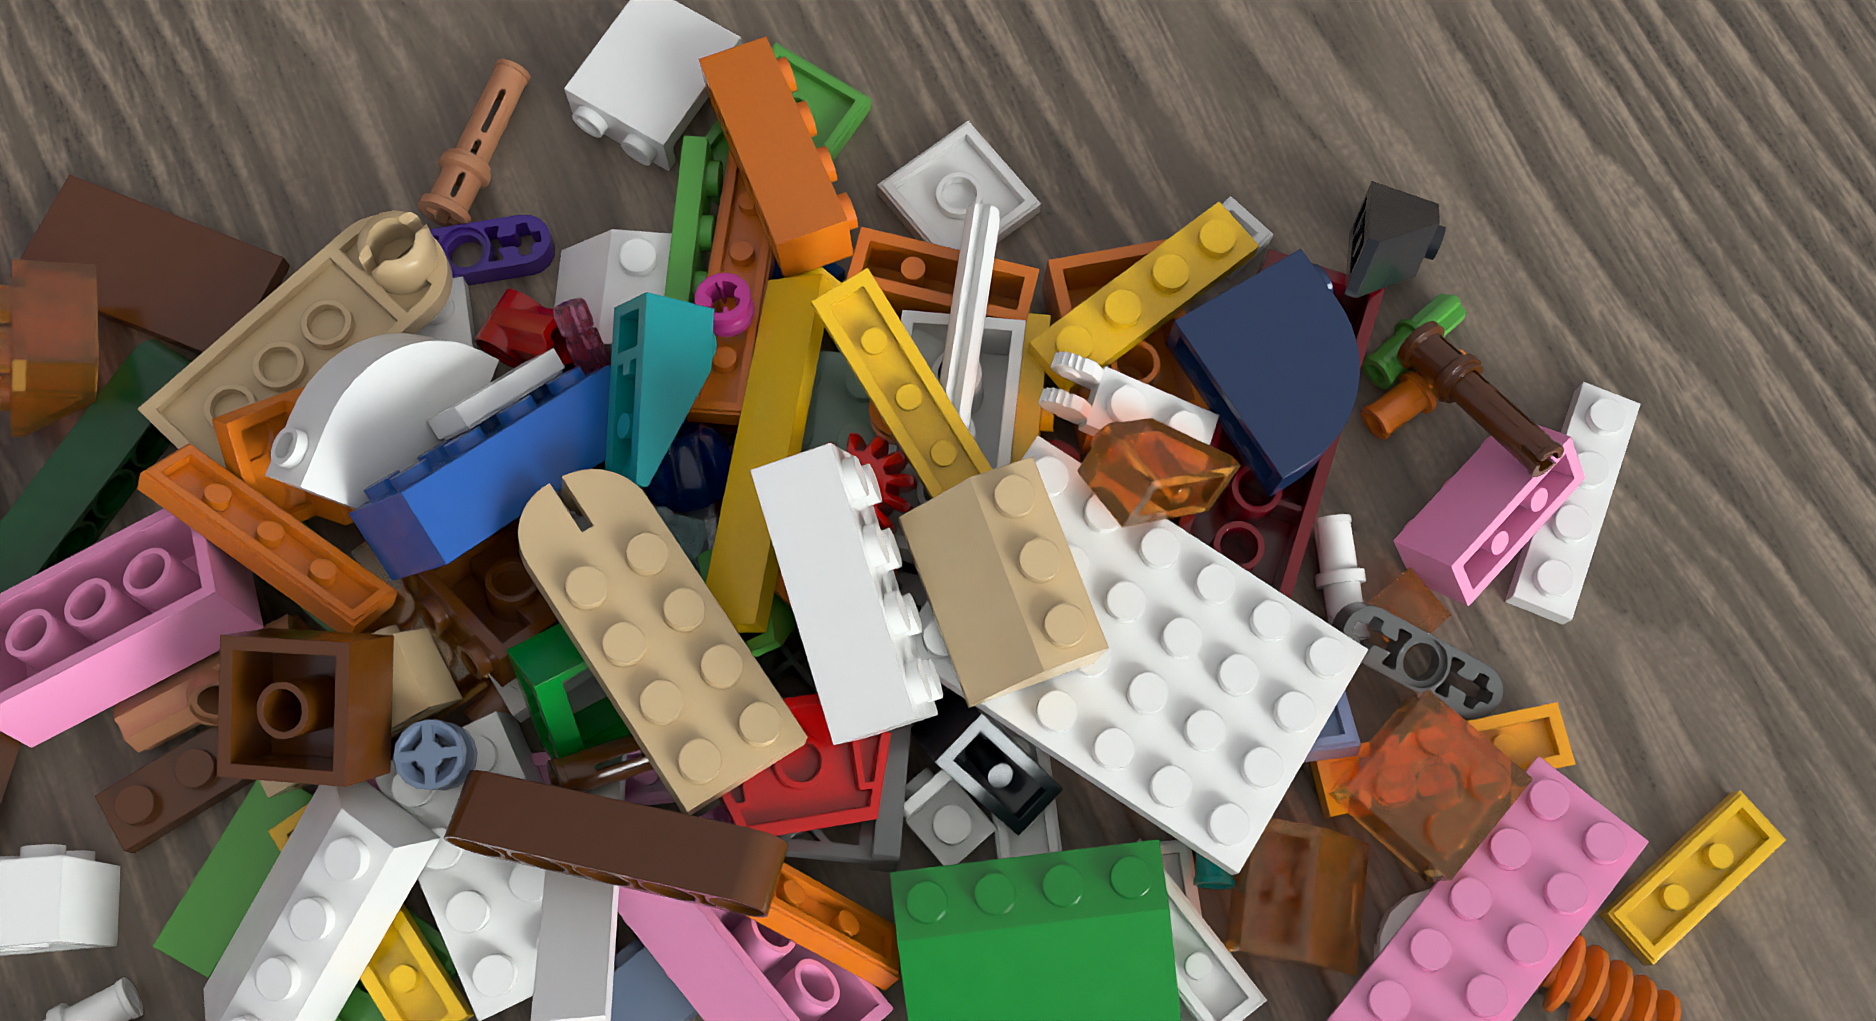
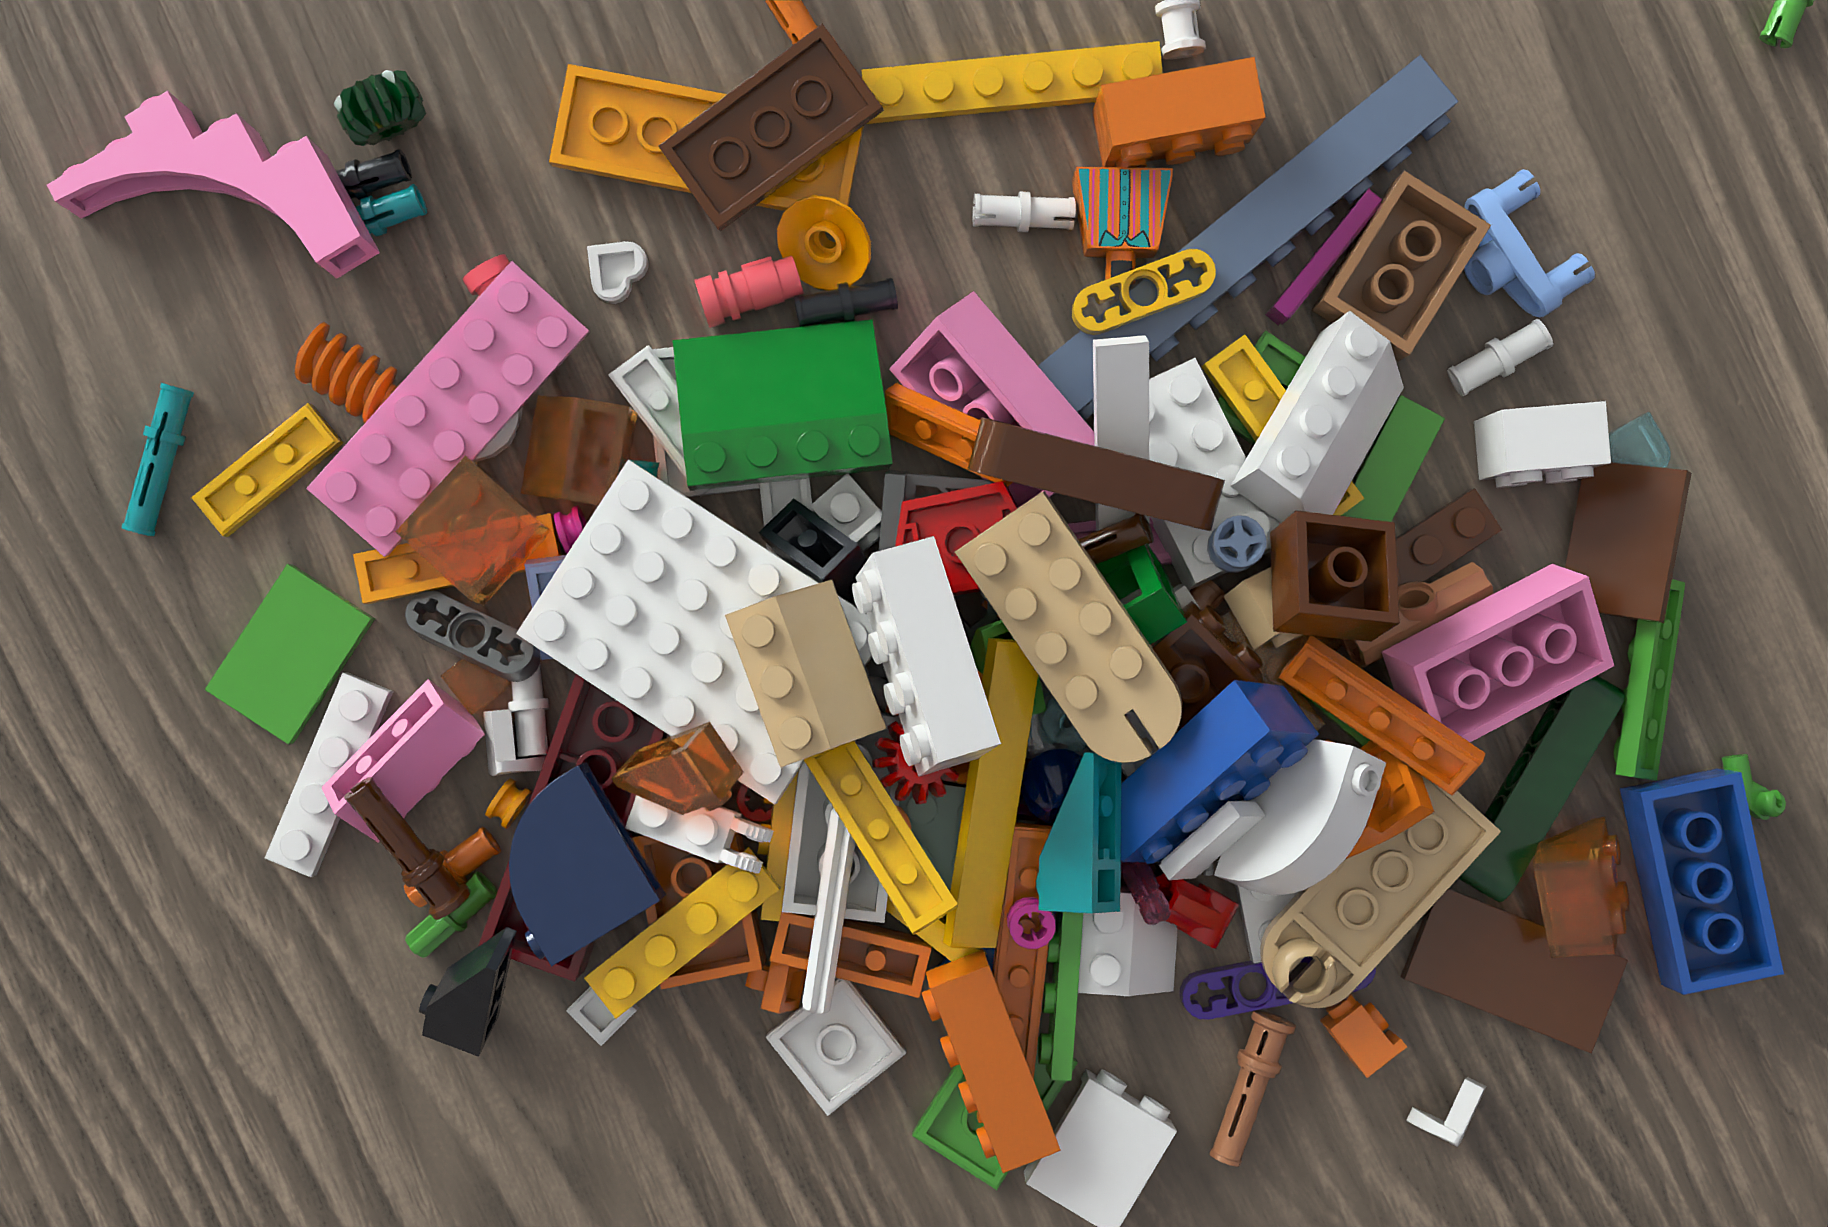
camera: 175 degrees left, 15 degrees up
(235, 105) = (1458, 1118): none -> white tile
(334, 189) = (1361, 1034): none -> orange brick
(1026, 246) = (780, 985): none -> orange tile
(1303, 797) = (569, 526): none -> dark pink bush
(1357, 463) = (508, 803): none -> light orange bush
(1368, 512) = (501, 746): none -> white tile
(1637, 645) = (290, 654): none -> bright green tile
(1835, 890) = (157, 459): none -> teal pin

